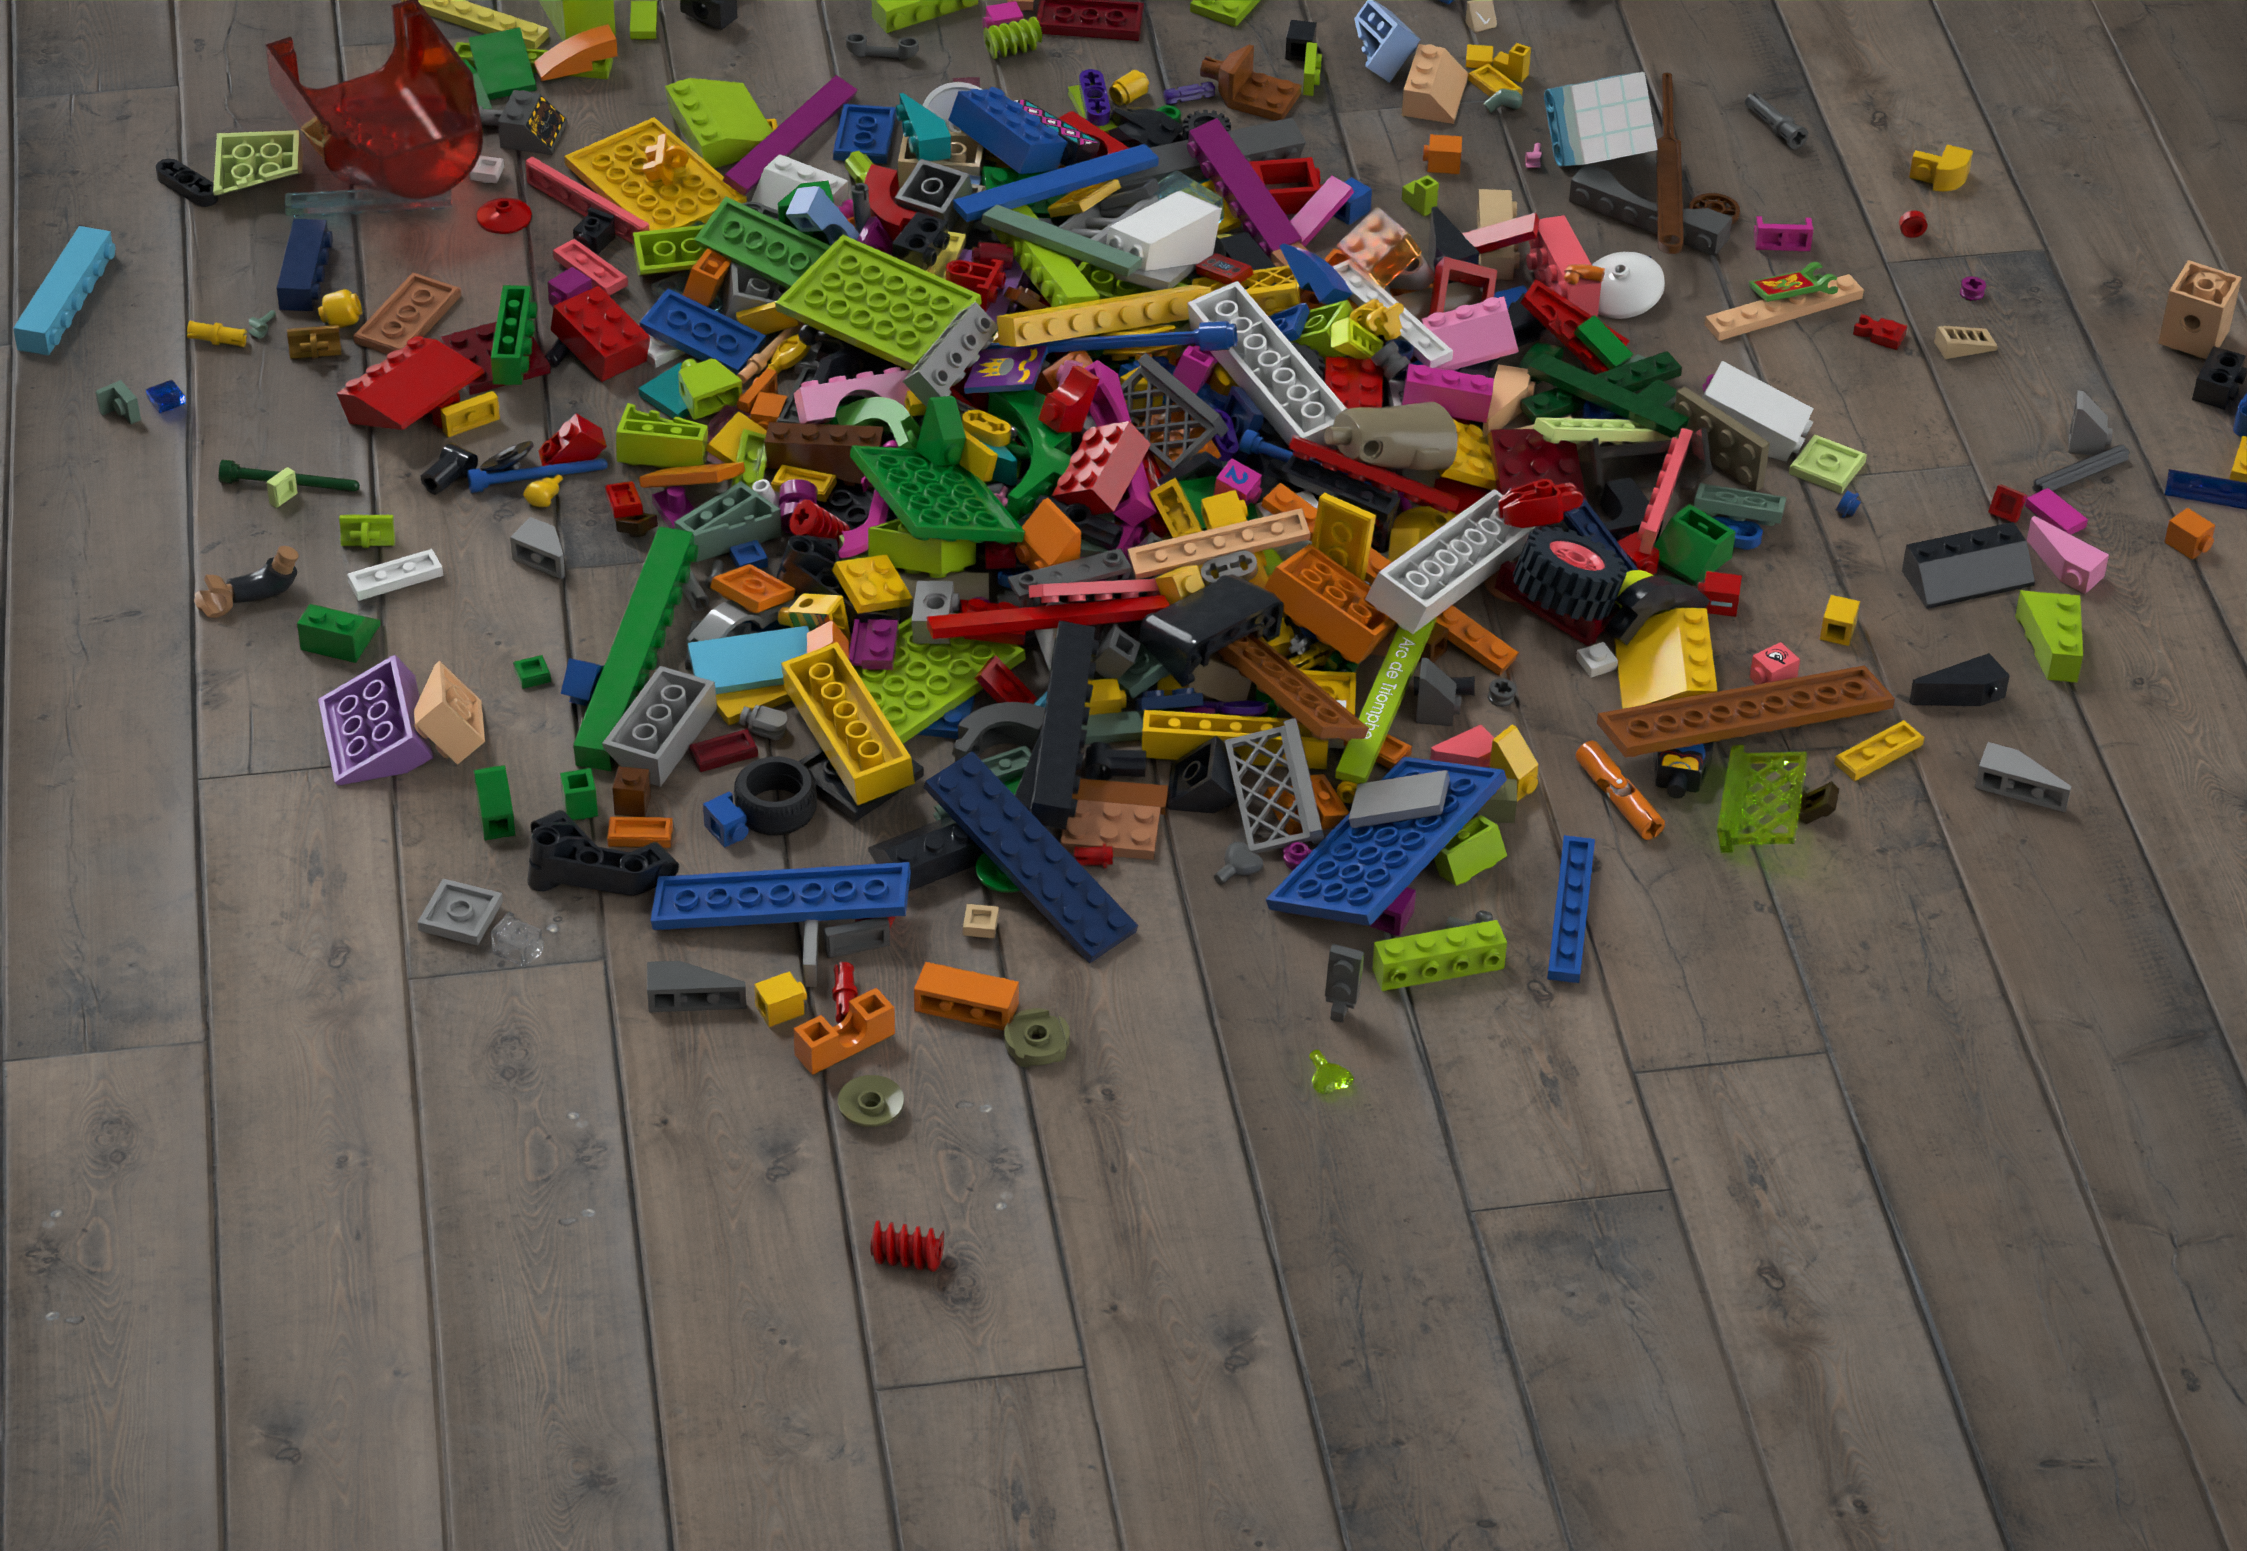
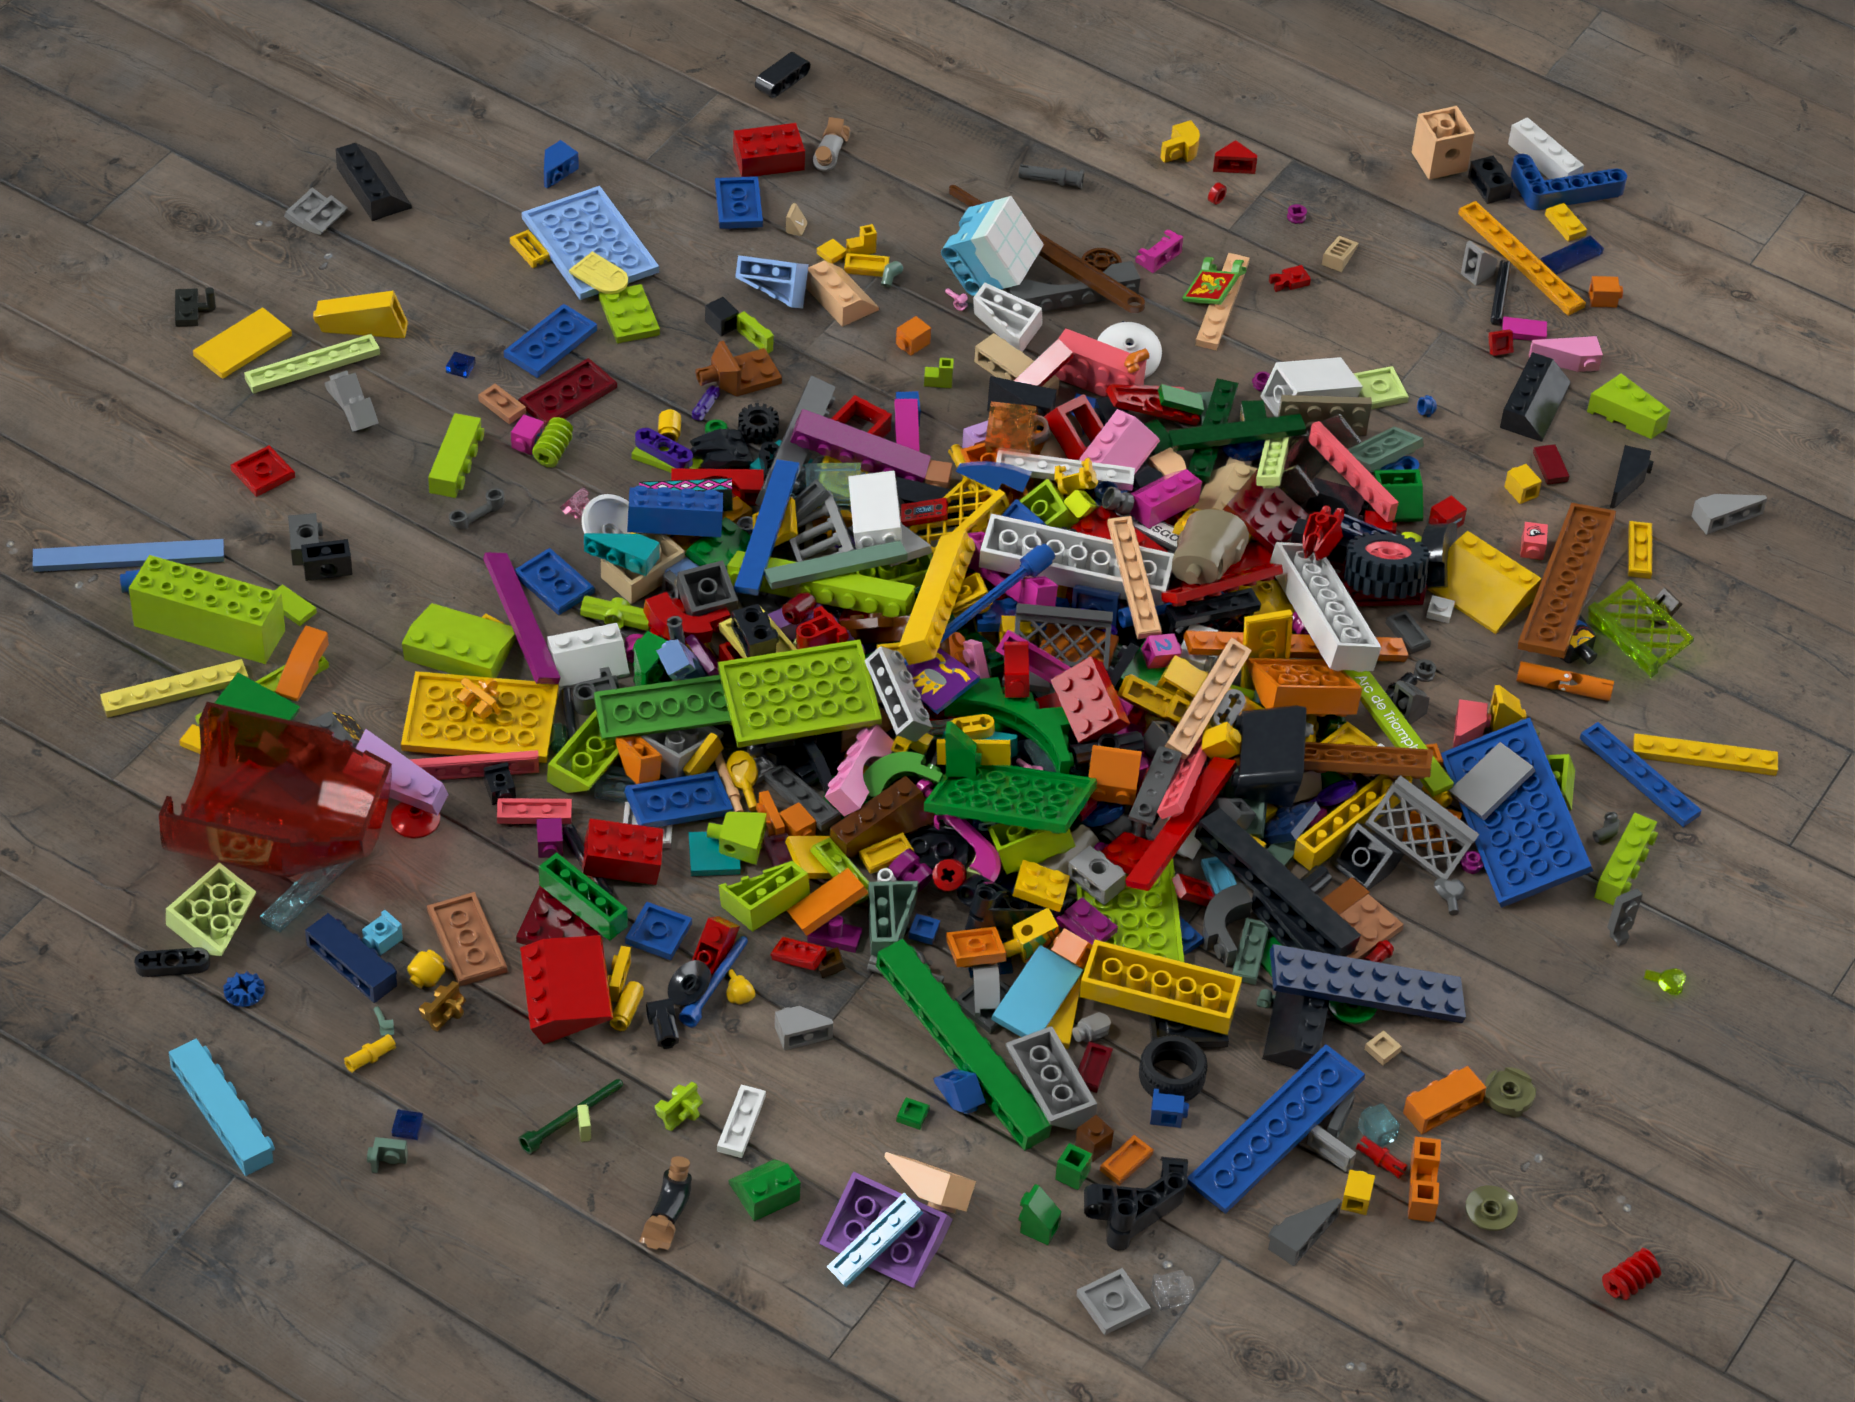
camera: 50 degrees left, 5 degrees up
(212, 233) = (238, 996): none -> blue gear
(346, 718) = (875, 1239): none -> tile
(350, 266) = (382, 933): none -> medium azure brick
(435, 440) = (627, 1005): none -> yellow piece
(511, 159) = (409, 781): none -> lavender wedge
(545, 408) = (658, 931): none -> blue plate
(878, 968) = (1379, 1125): none -> clear light blue brick
(1287, 407) = (1134, 577): none -> light nougat tile
(1536, 655) = (1406, 628): none -> dark grey tile
(1550, 186) = (1007, 315): none -> white wedge
(1668, 944) = (1705, 754): none -> yellow plate
(1901, 628) = (1551, 464): none -> dark red tile
(1973, 208) = (1235, 159): none -> red slope
(2152, 460) = (1522, 258): none -> light orange tile

